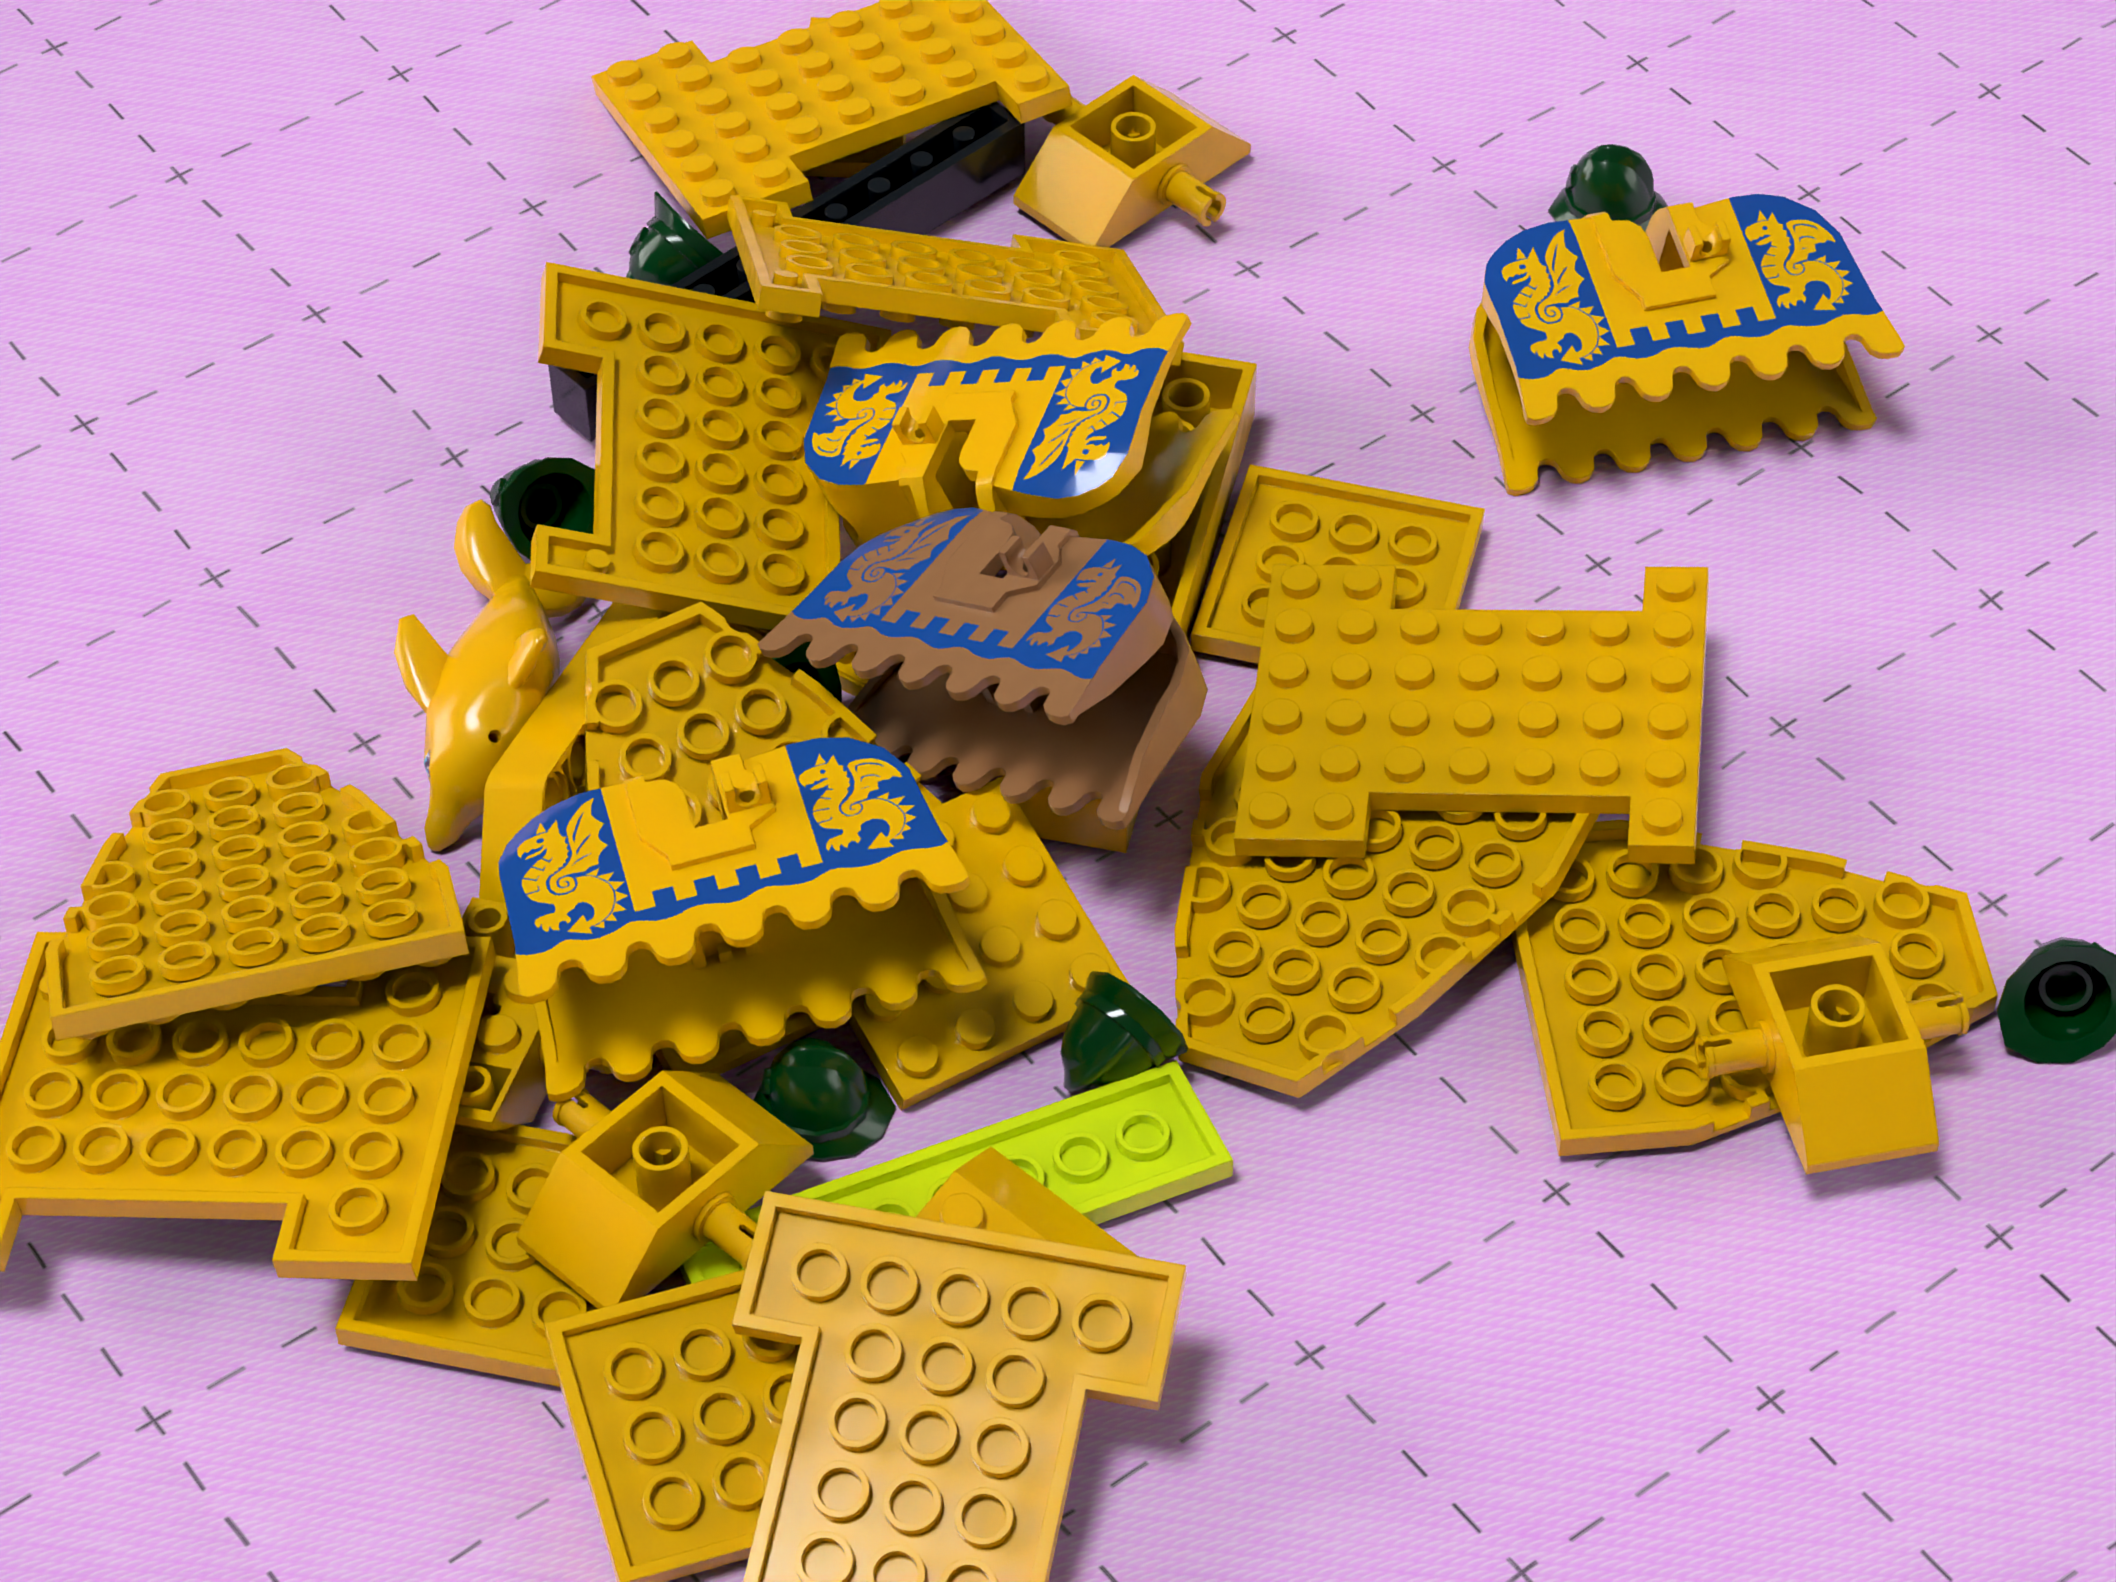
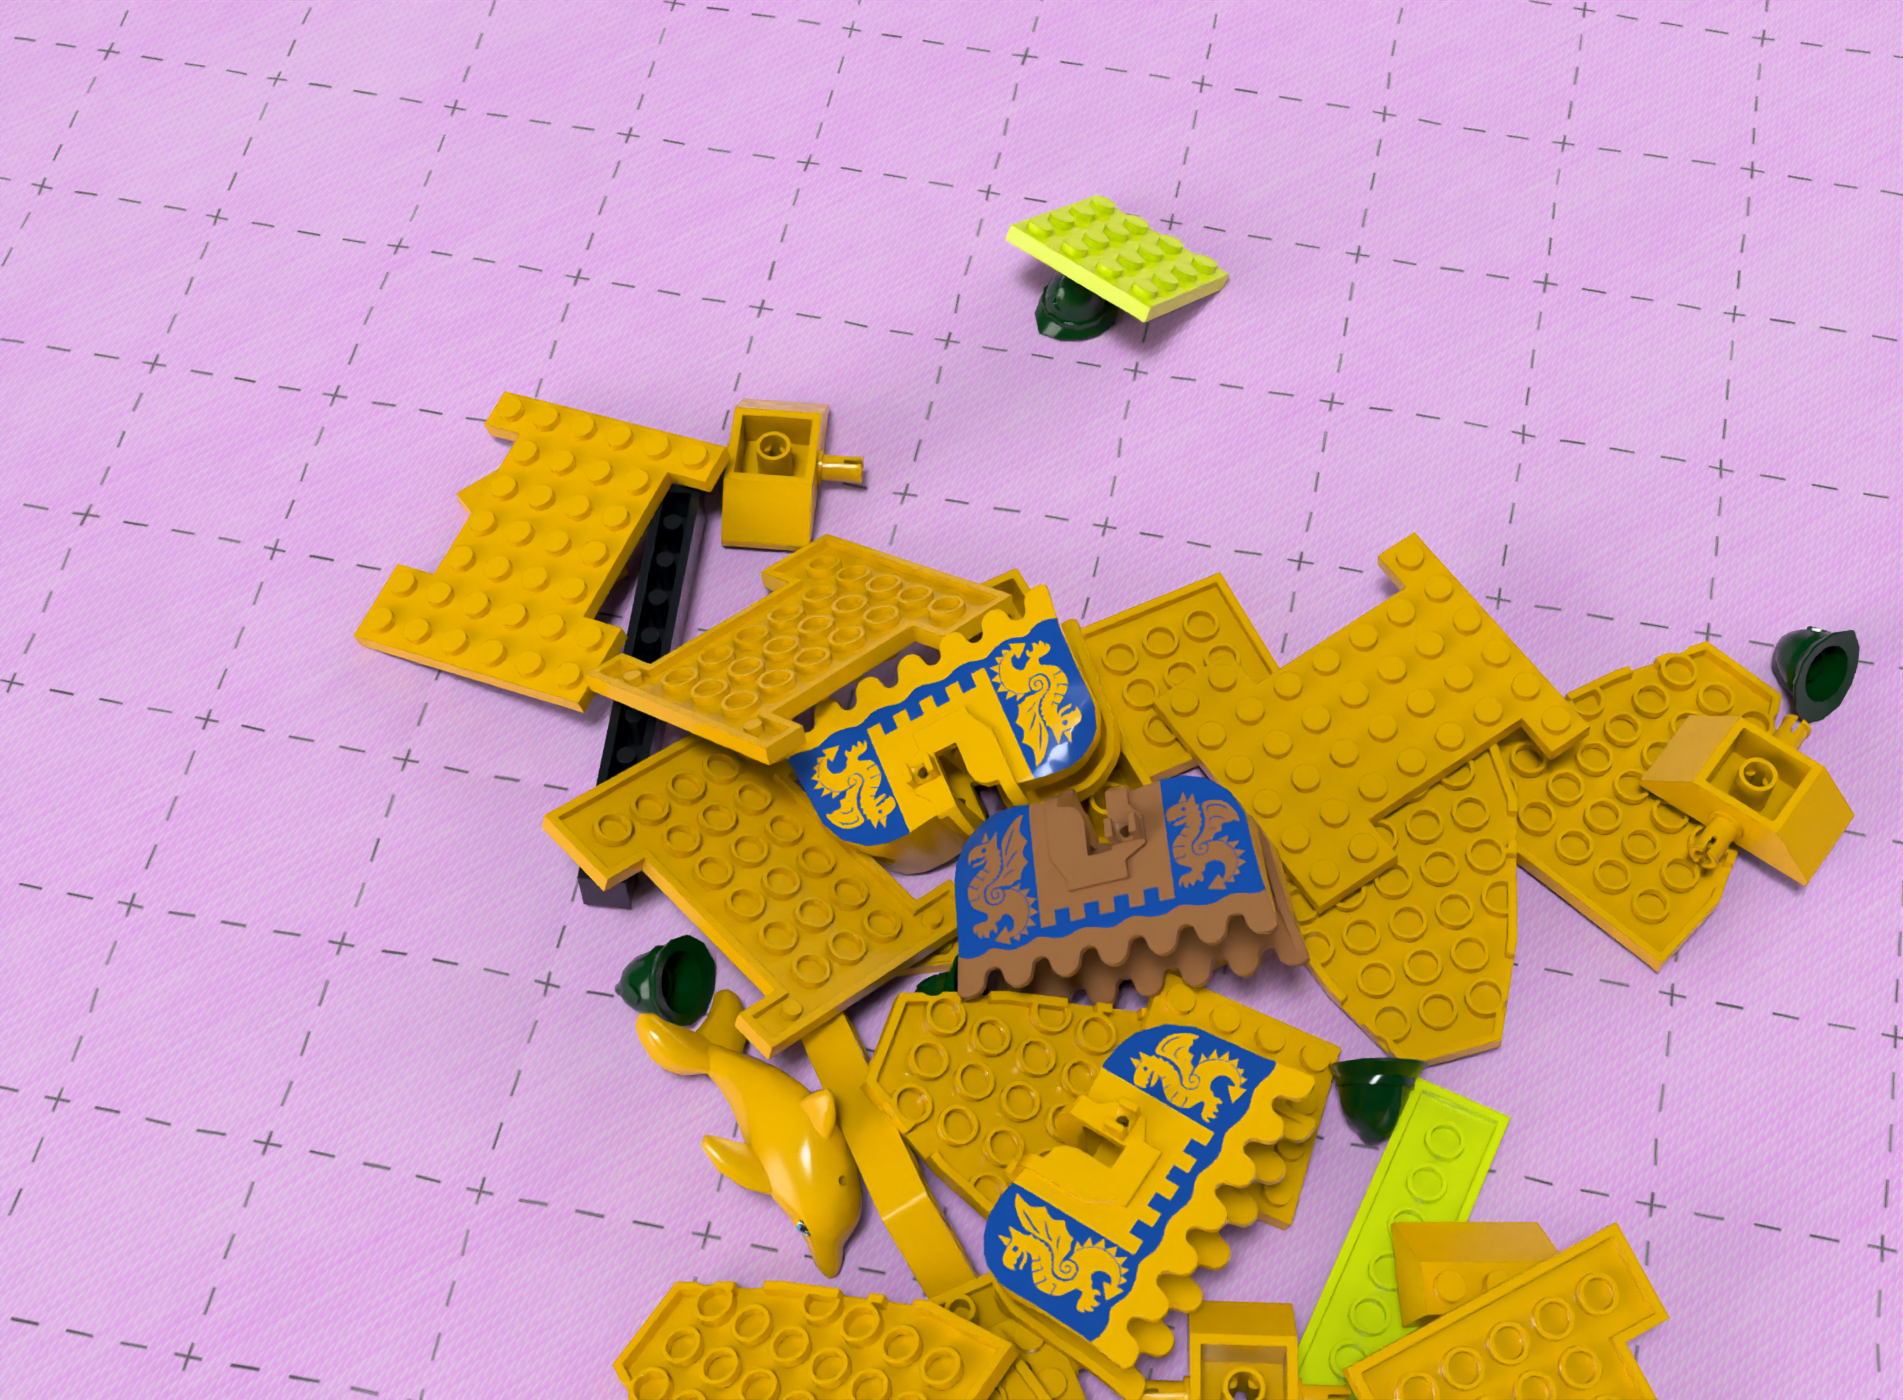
camera: 40 degrees left, 10 degrees up
(668, 248) = (560, 740): dark green piece -> none
(826, 1098) = (1256, 1269): dark green piece -> none
(1661, 144) = (1118, 257): none -> neon yellow plate
(1670, 335) = (1229, 384): yellow animal -> none

